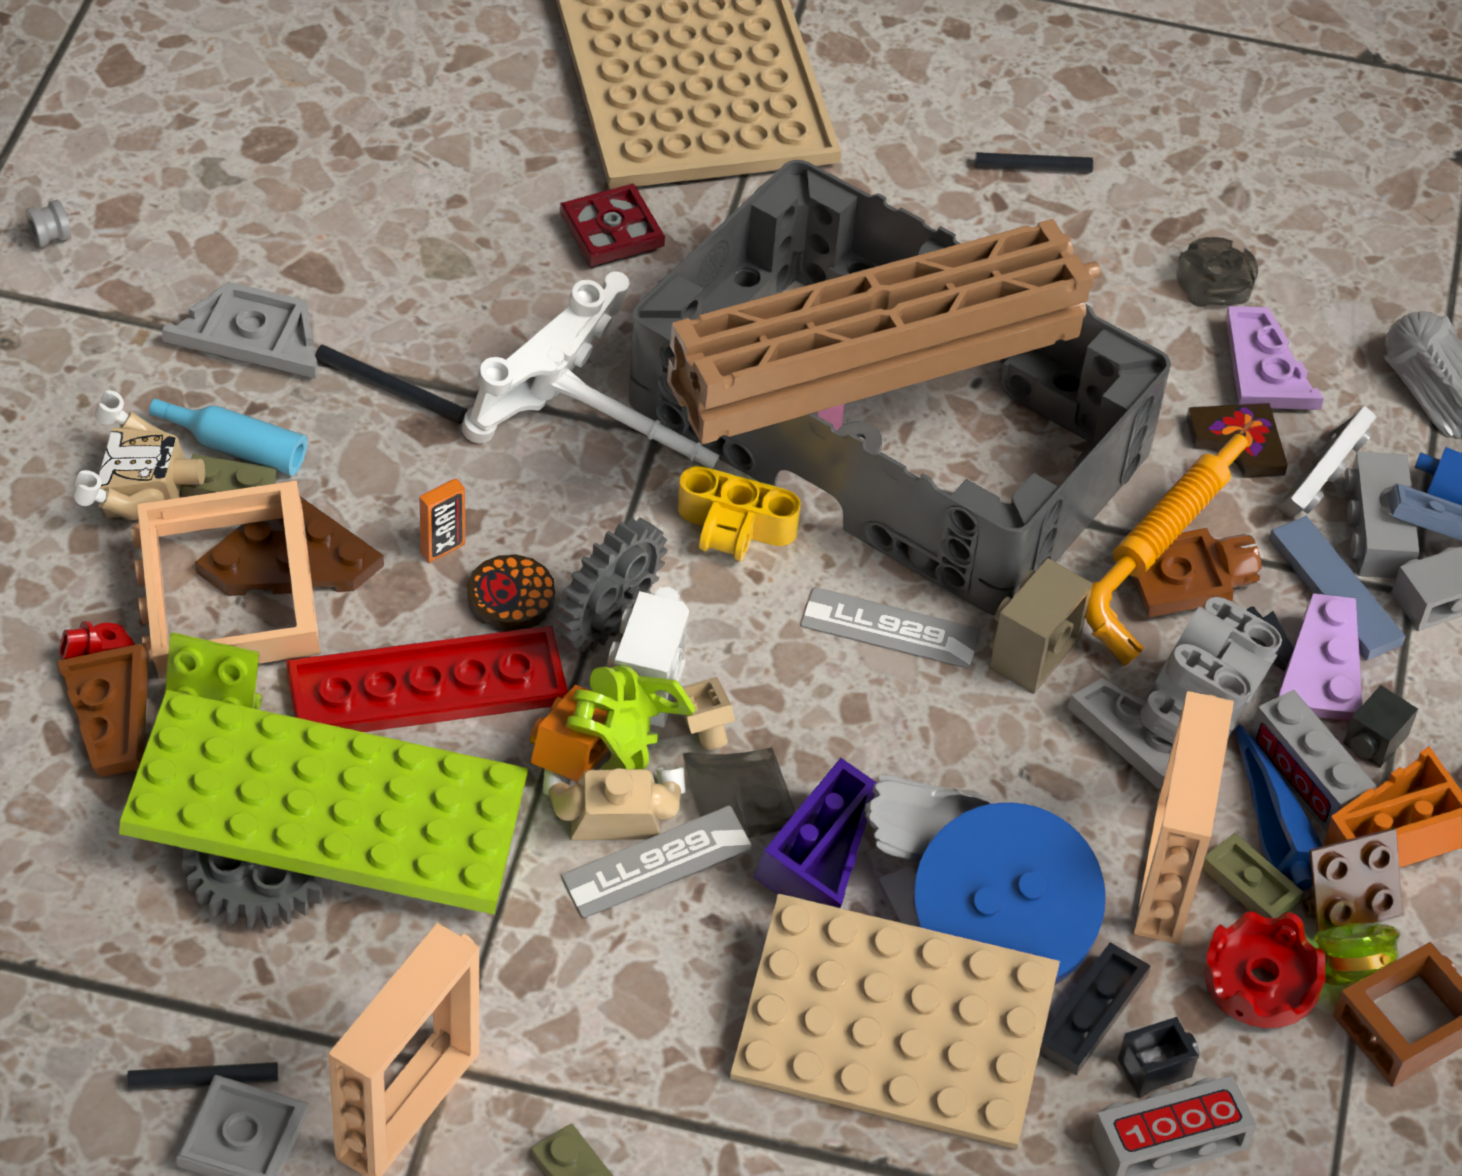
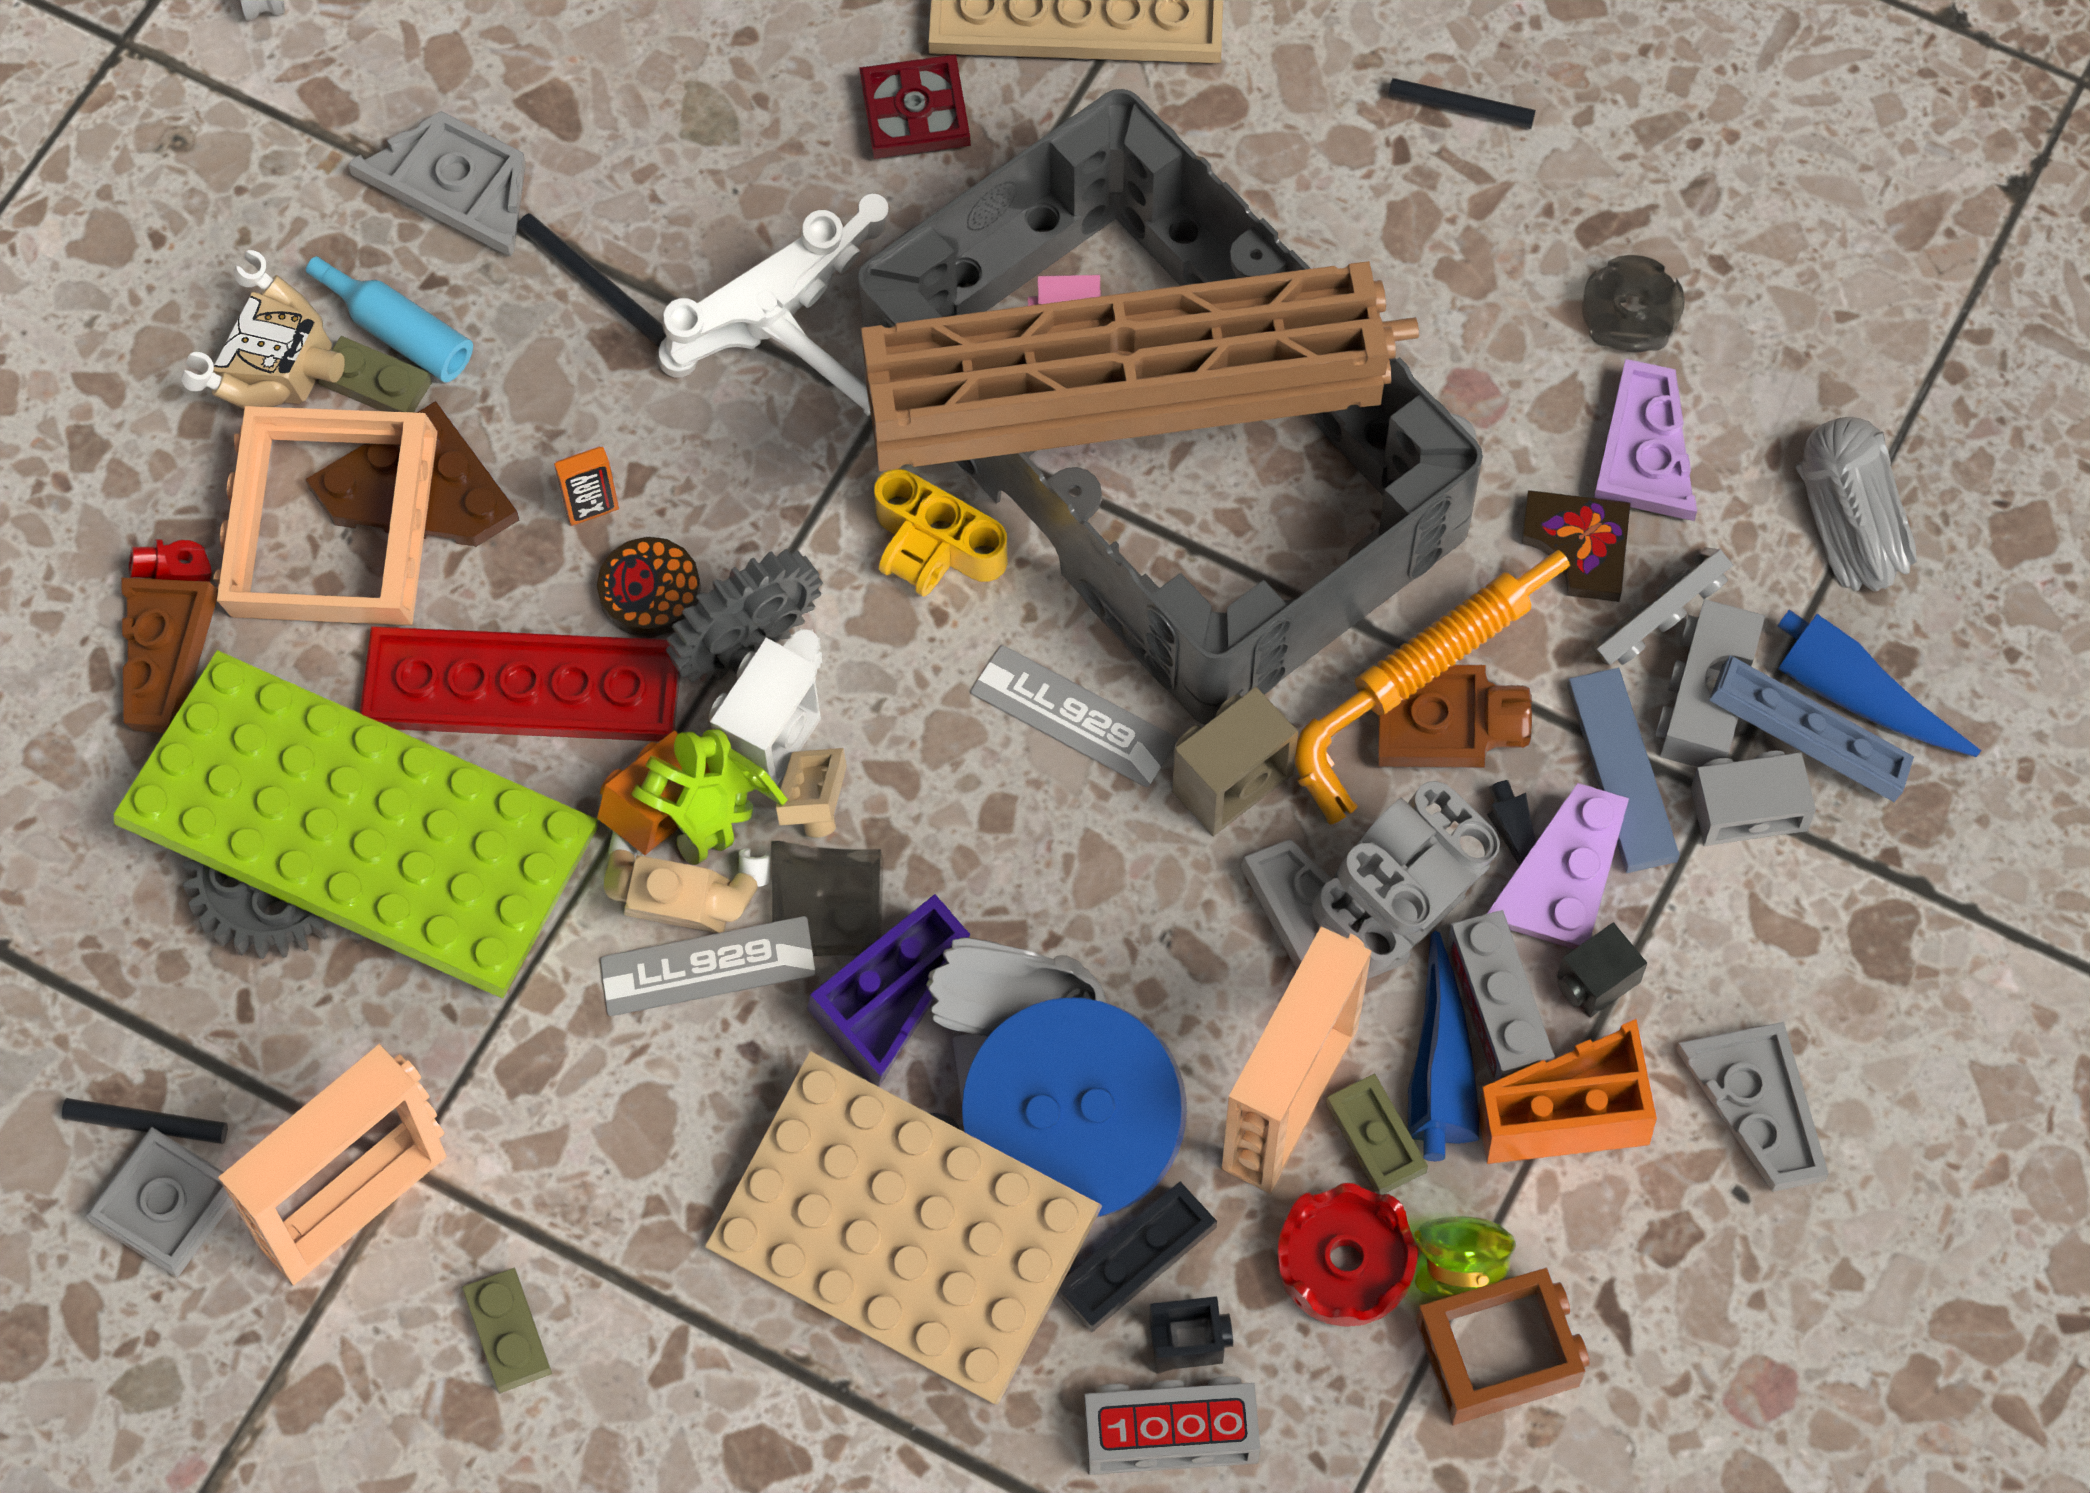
camera: 20 degrees right, 15 degrees up
(213, 670) = (275, 641): lime hinge -> none
(1355, 881) = (1488, 1172): hinge -> none

